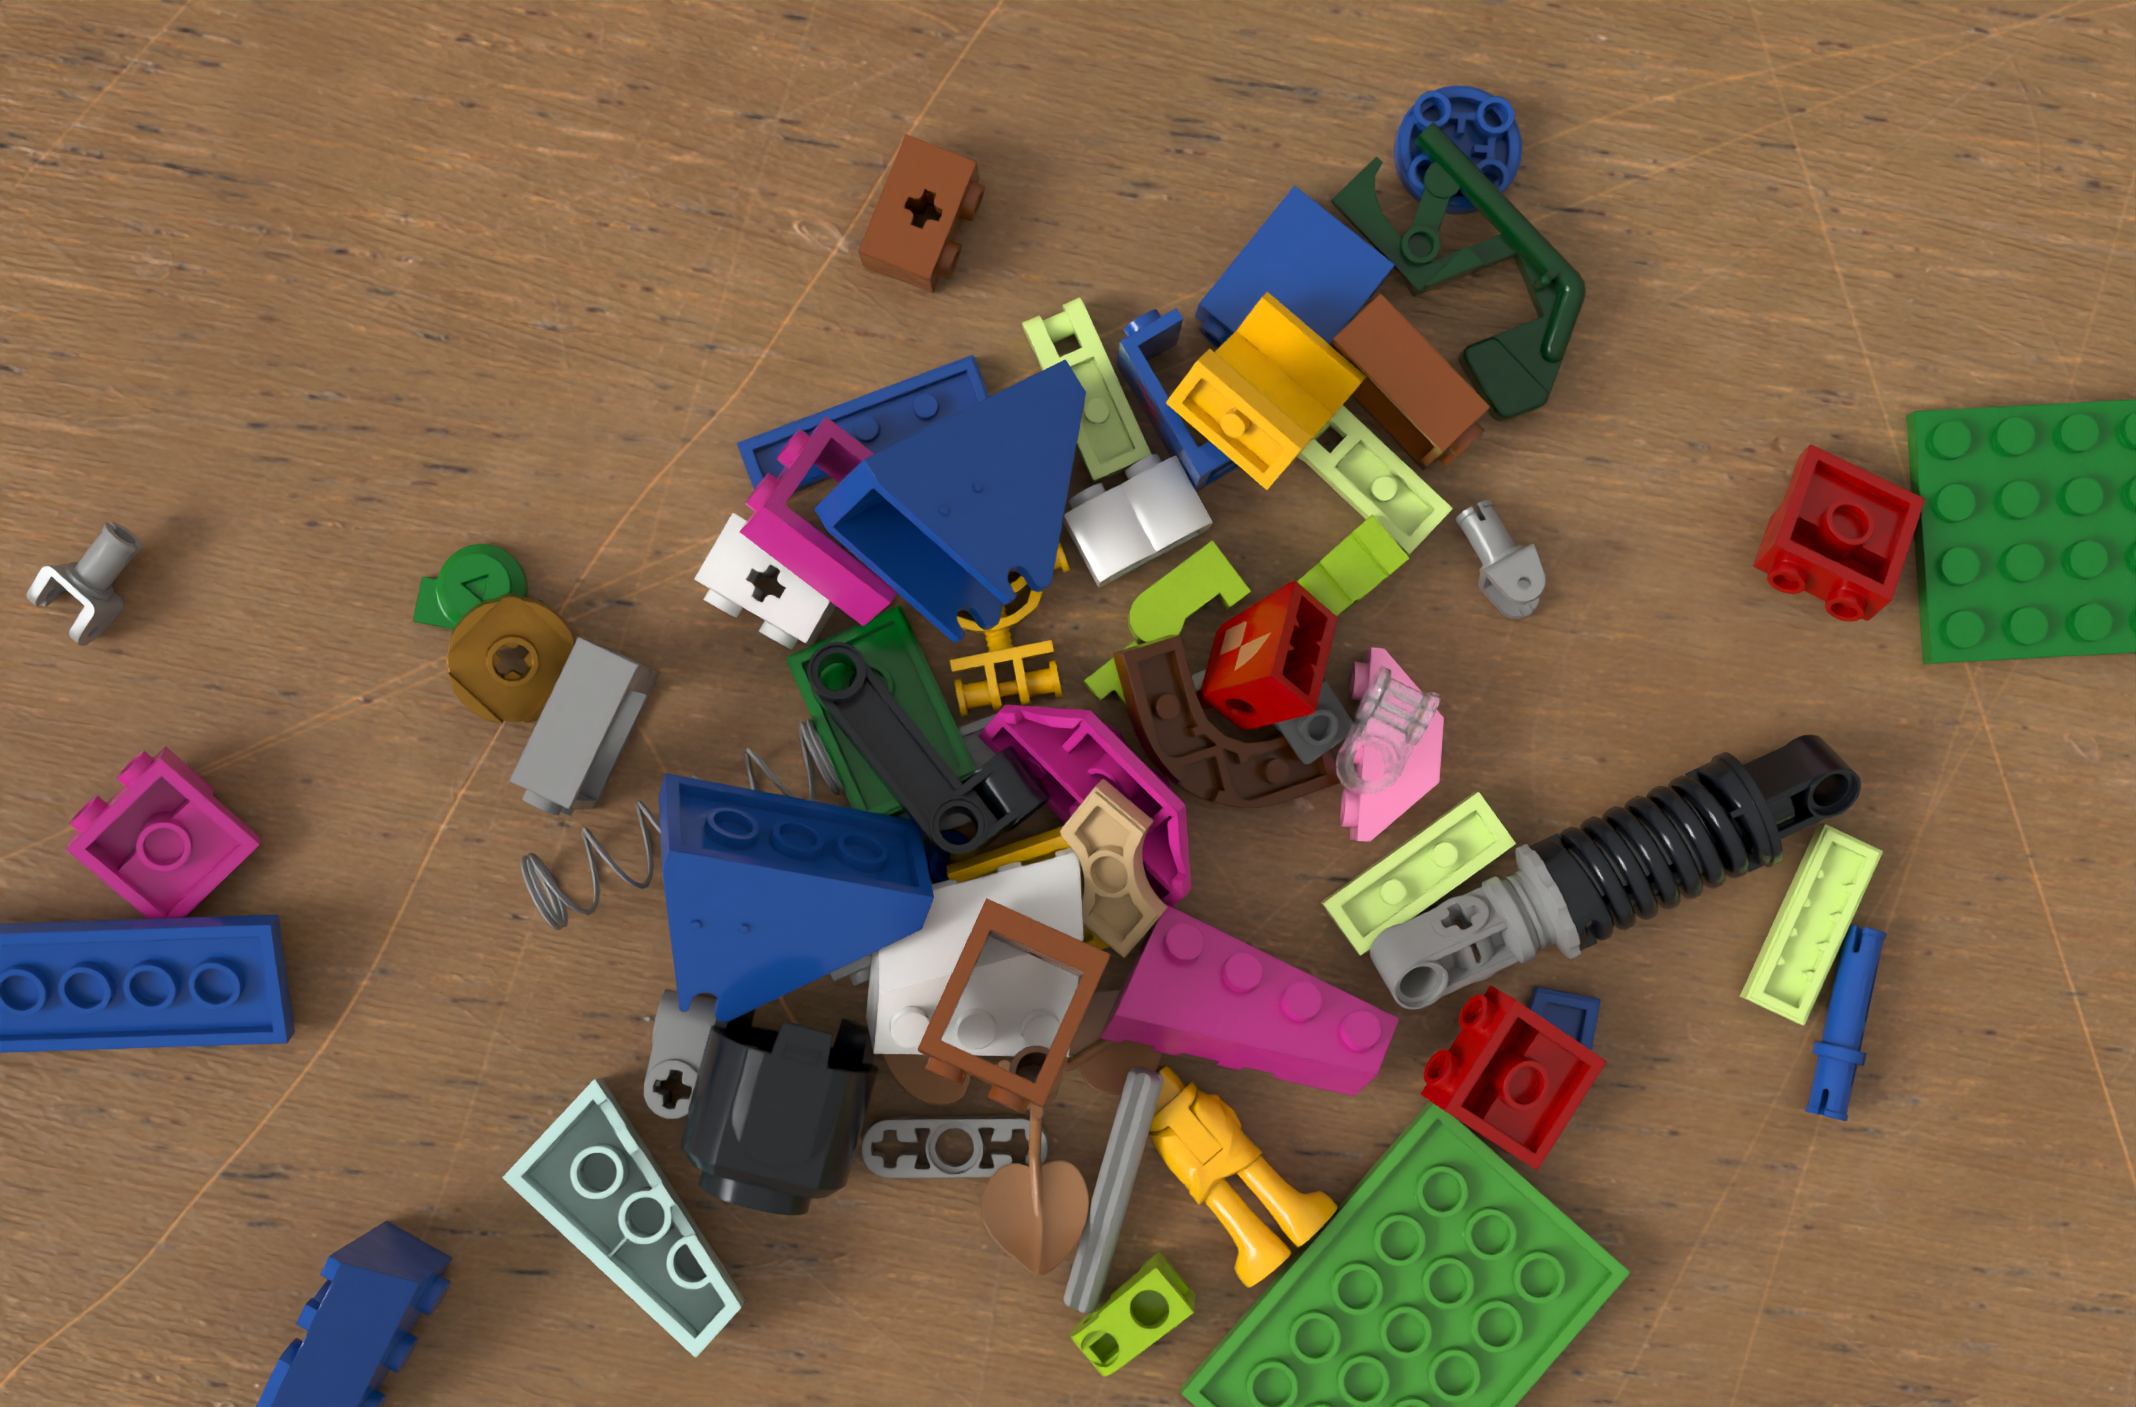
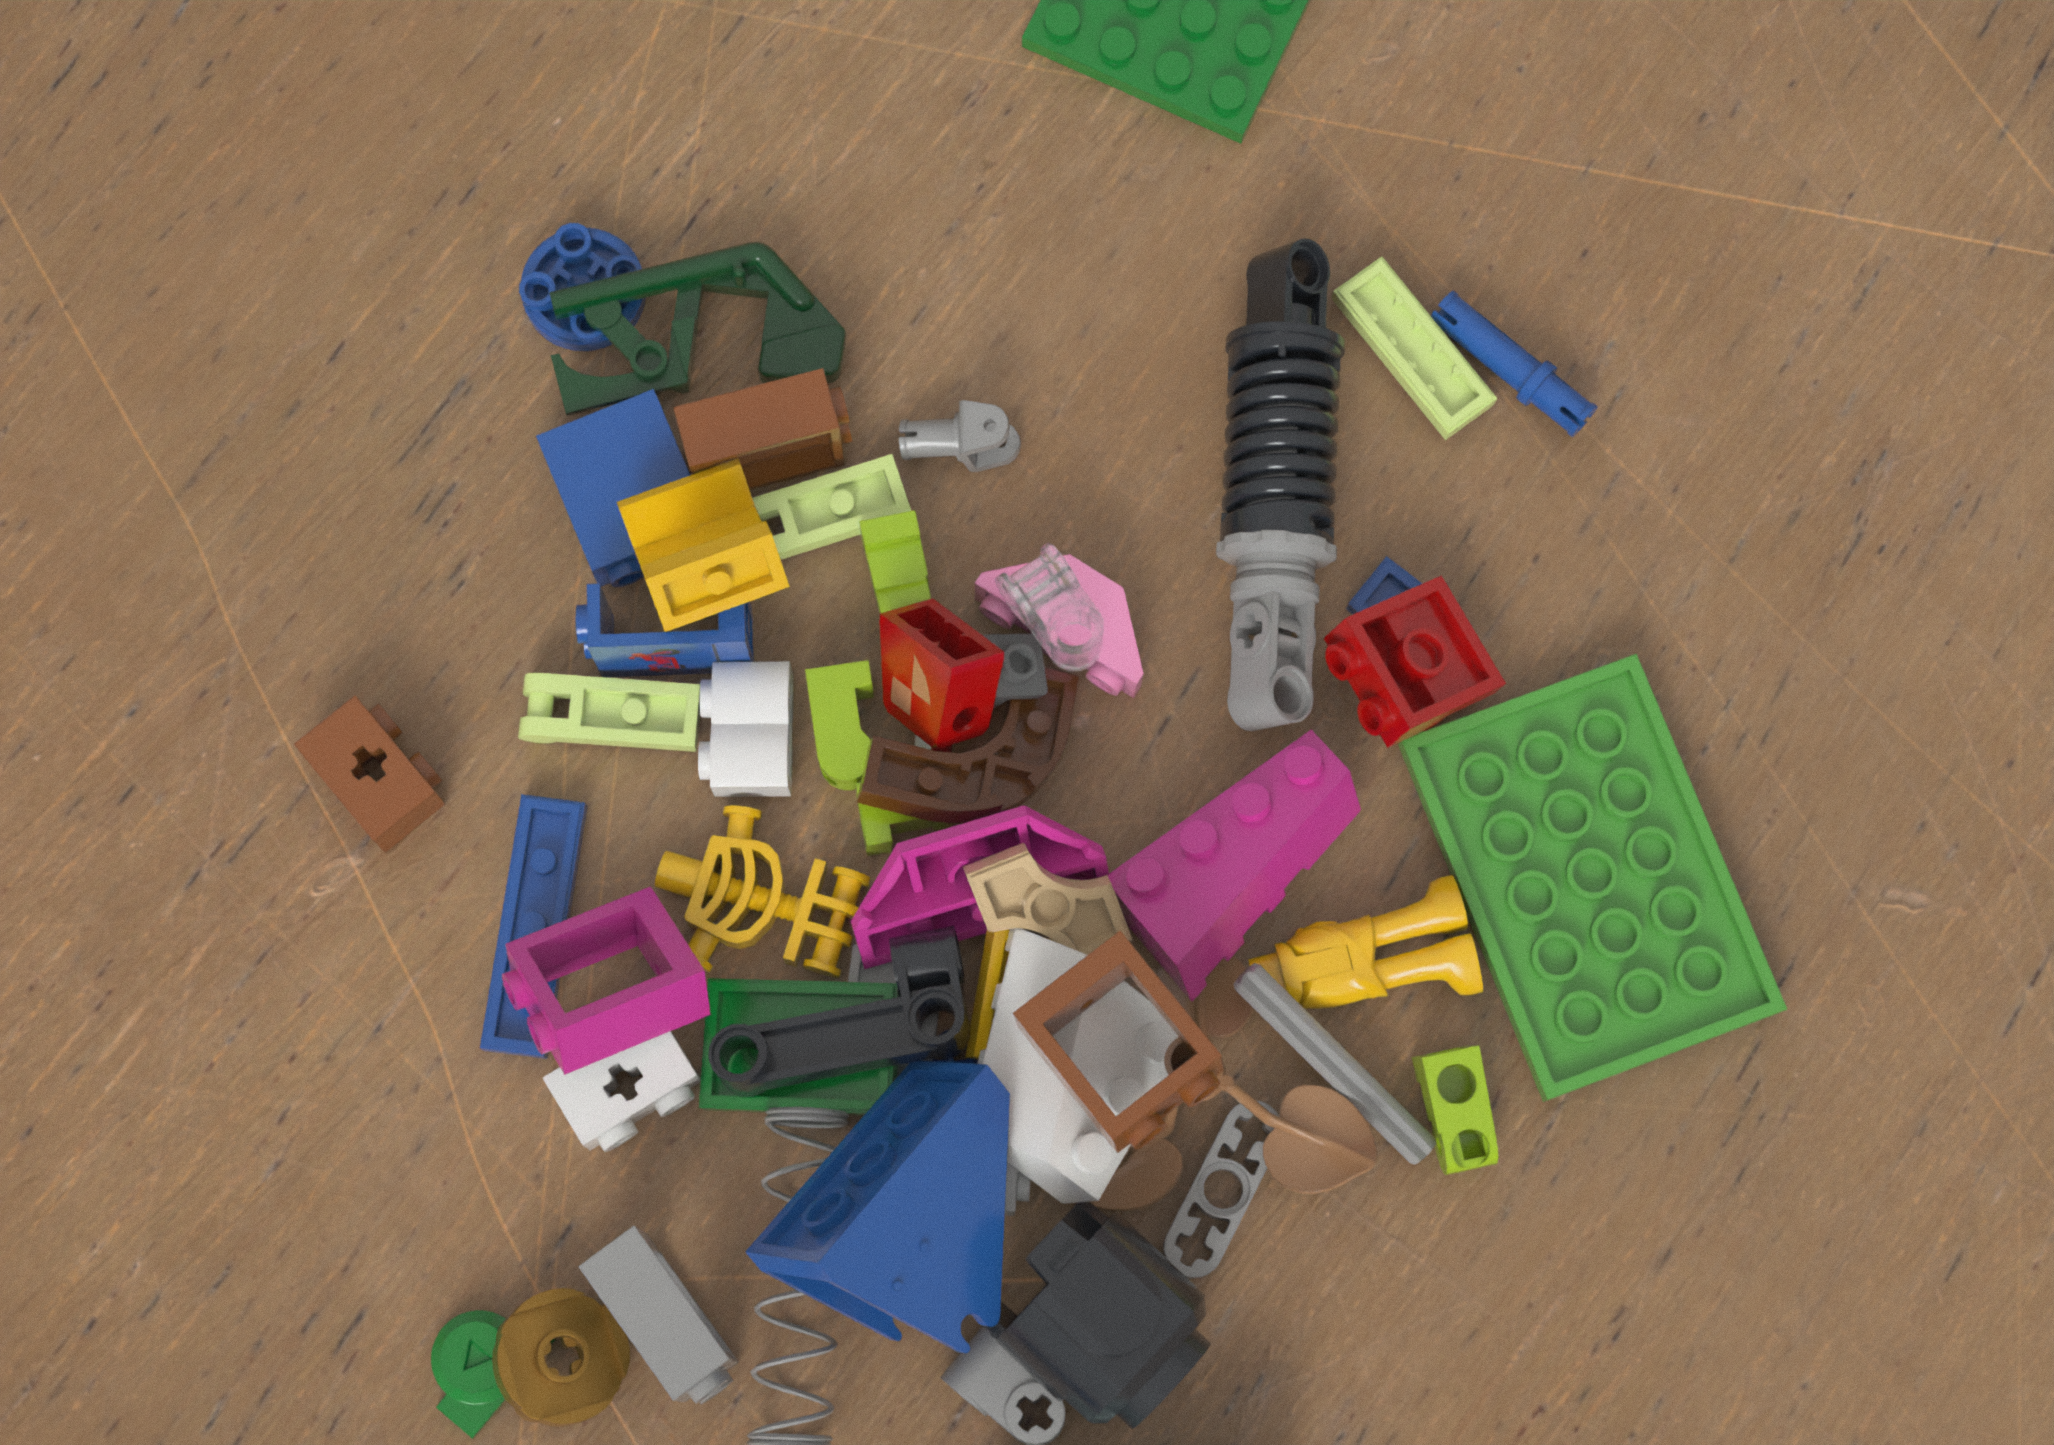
camera: 60 degrees left, 10 degrees down
(967, 501) = (655, 854): blue ladder -> none
(1418, 872) = (1193, 651): yellowish green plate -> none
(1839, 536) = (1093, 151): red plate -> none

